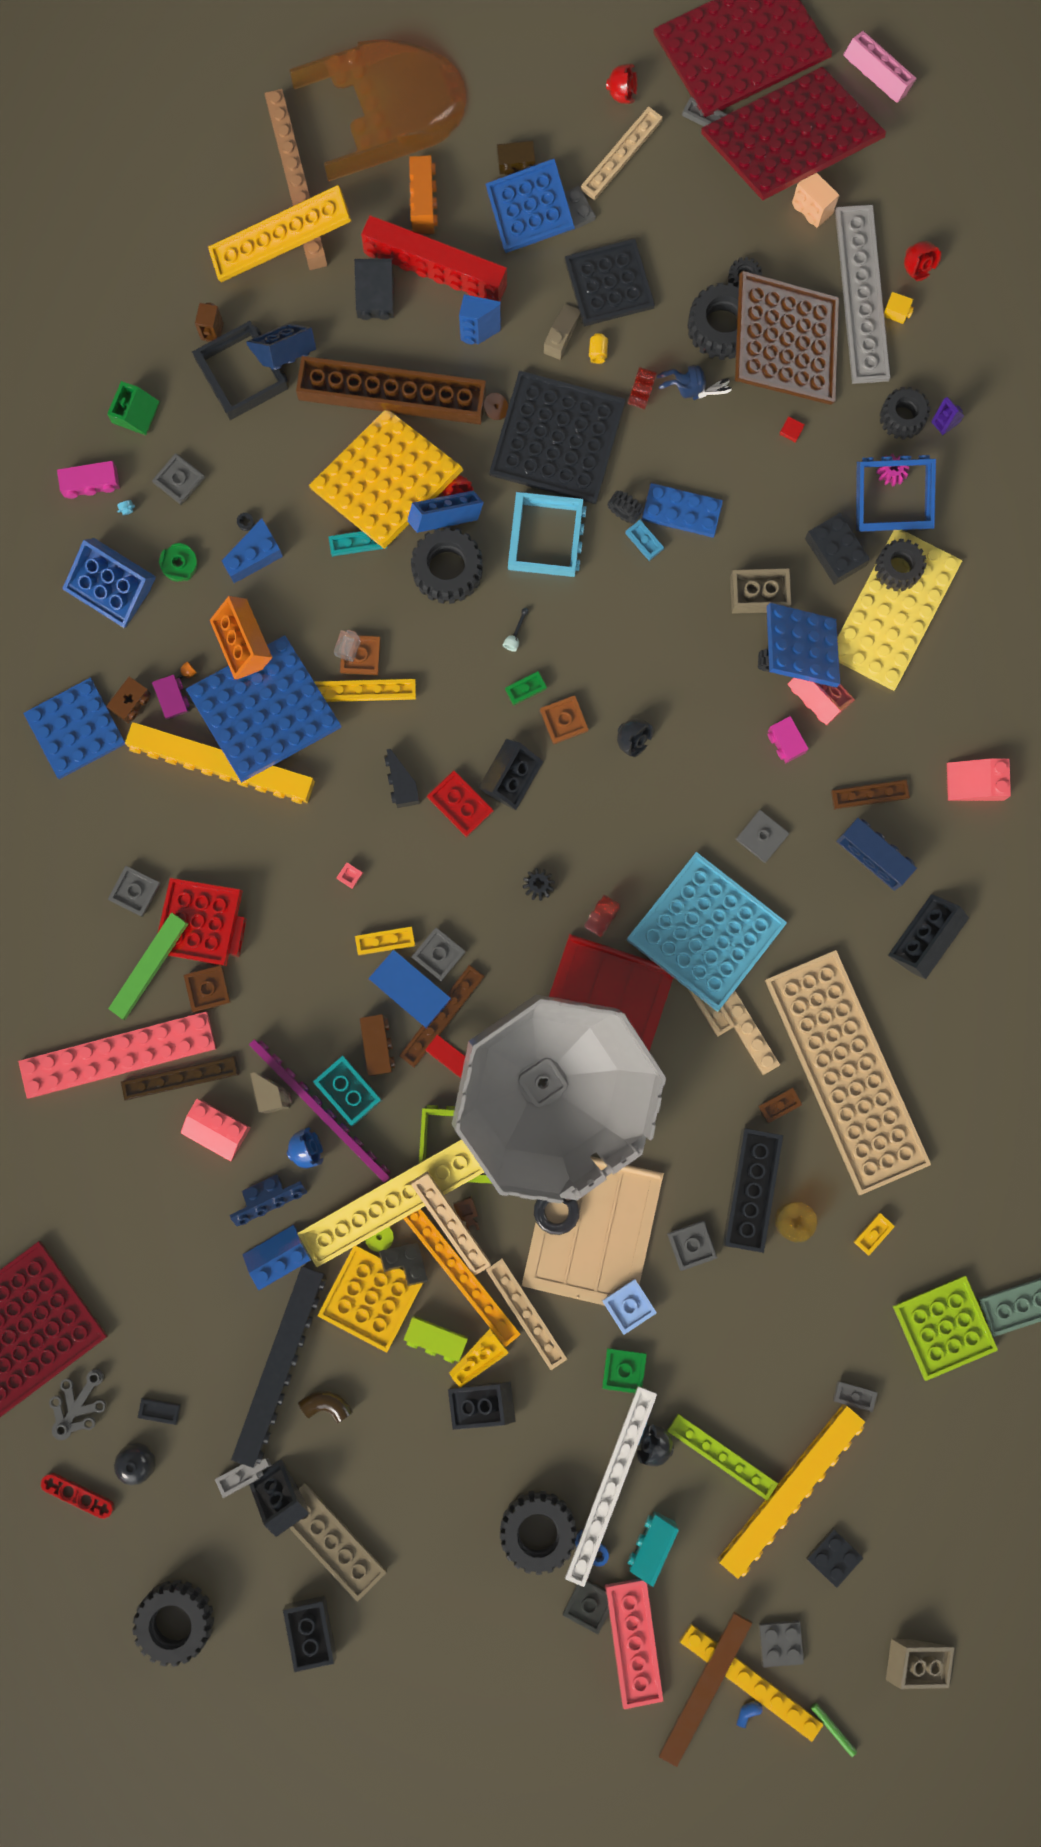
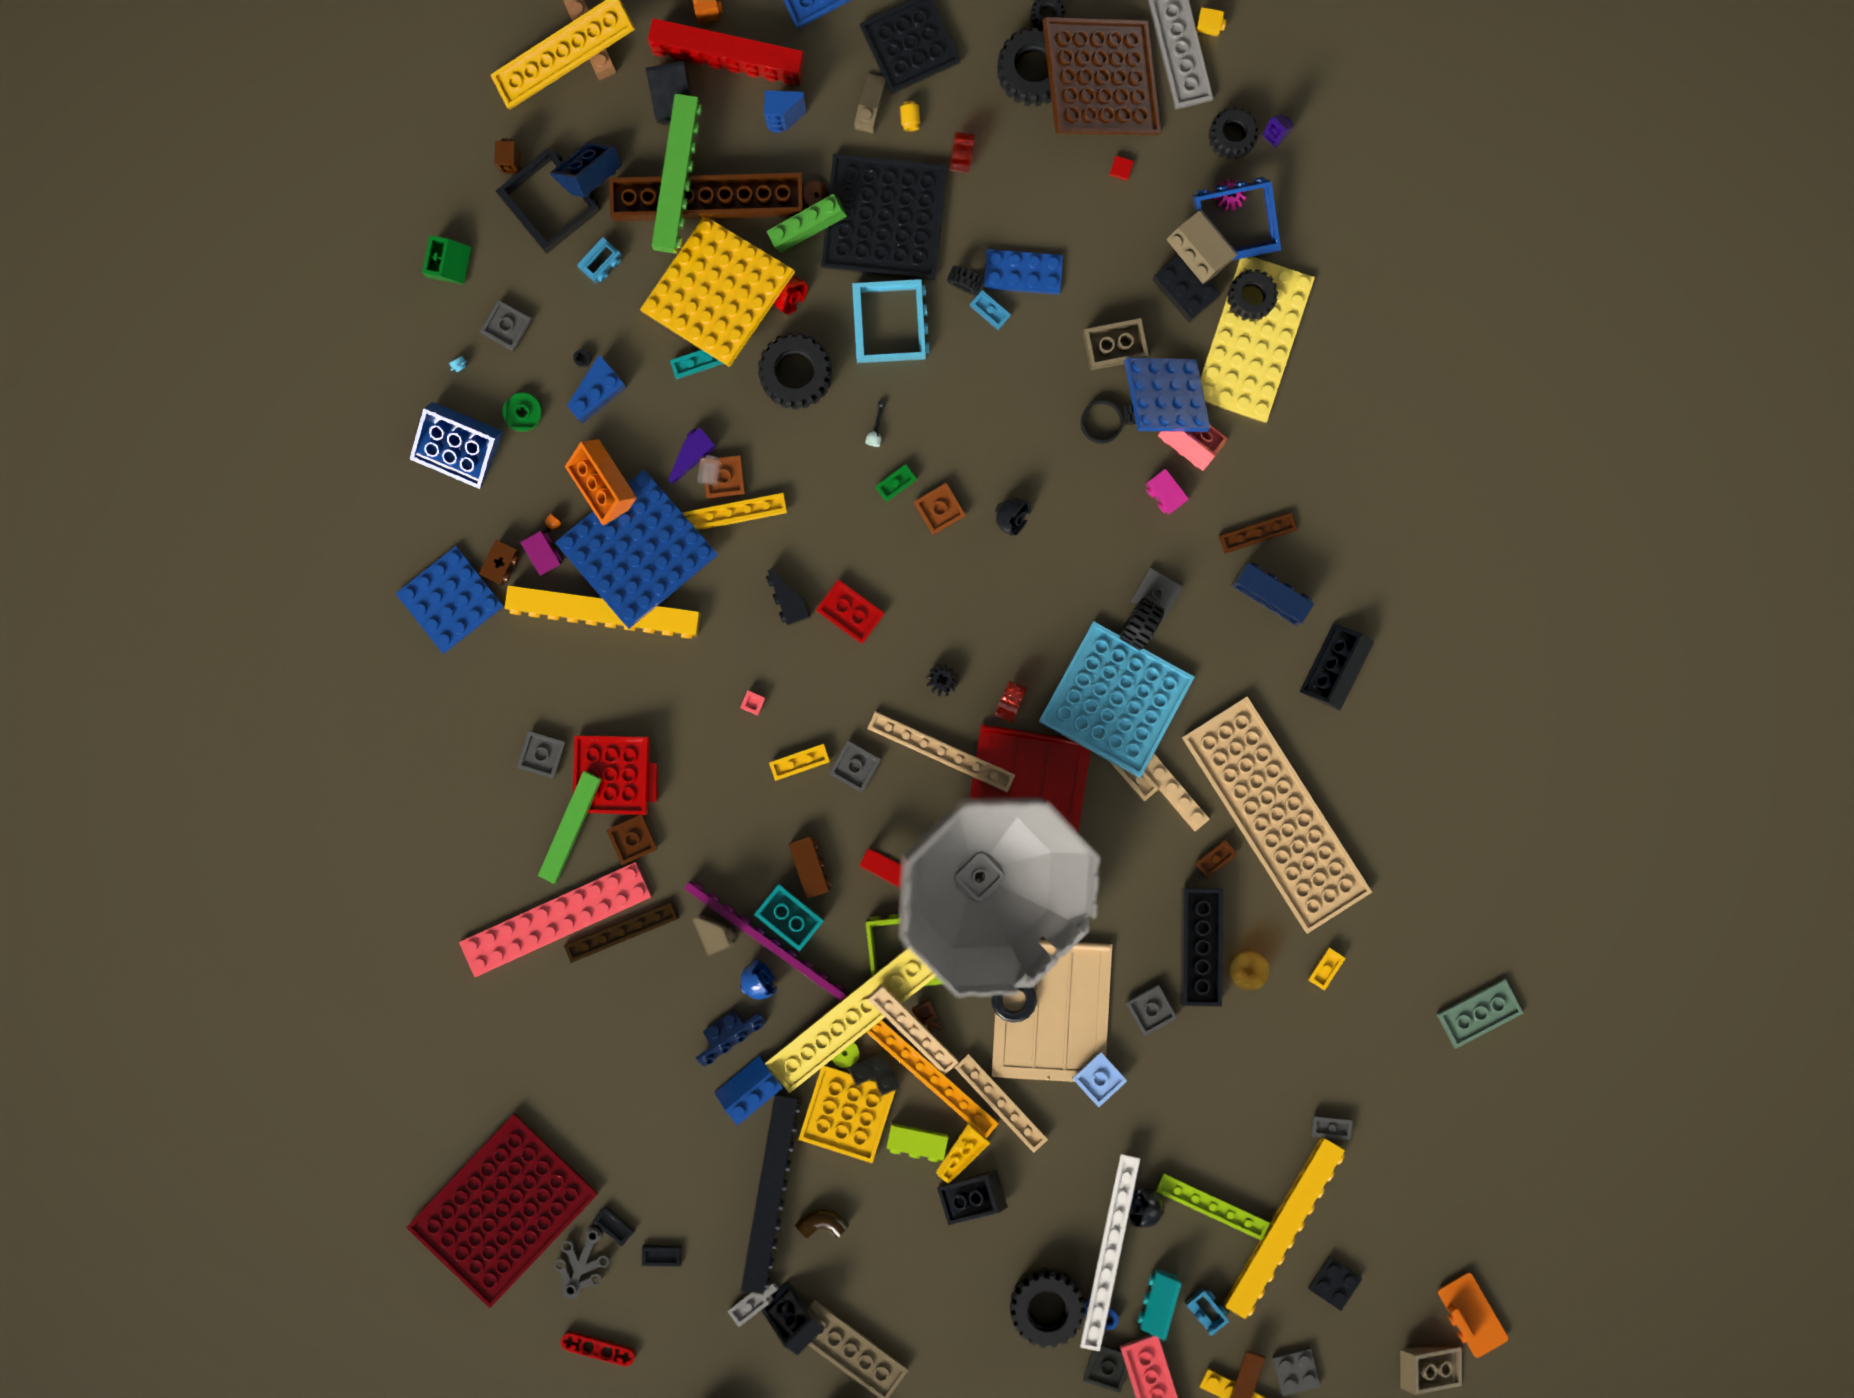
camera: 10 degrees left, 5 degrees up
(88, 479) = (414, 342): dark pink brick -> none
(117, 1372) = (613, 1226): none -> black tile
(134, 1464) = (647, 1310): black cylinder -> none
(214, 1129) = (665, 976): coral slope -> none
(283, 440) = (601, 273): none -> dark azure window
(338, 619) = (693, 449): none -> dark purple slope
(365, 361) = (676, 173): none -> bright green brick
(410, 989) = (832, 805): blue tile -> none
(445, 511) = (784, 317): blue brick -> none
(459, 994) = (868, 827): reddish brown tile -> none
(482, 429) = (807, 223): none -> bright green brick
(511, 774) = (896, 573): black slope -> none
(526, 954) = (941, 751): none -> tan tile
(623, 1370) = (1104, 1140): green plate -> none
(694, 383) = (1013, 137): dark blue hair -> none
(701, 1581) = (1212, 1327): none -> dark azure window
(744, 861) = (1142, 624): none -> black tyre
(747, 649) = (1105, 403): none -> black tyre
(859, 510) = (1202, 246): none -> dark tan slope
(945, 1328) = (1408, 1047): lime plate -> none
(970, 1616) = (1472, 1315): none -> orange bracket
(979, 780) = (1363, 501): coral slope -> none

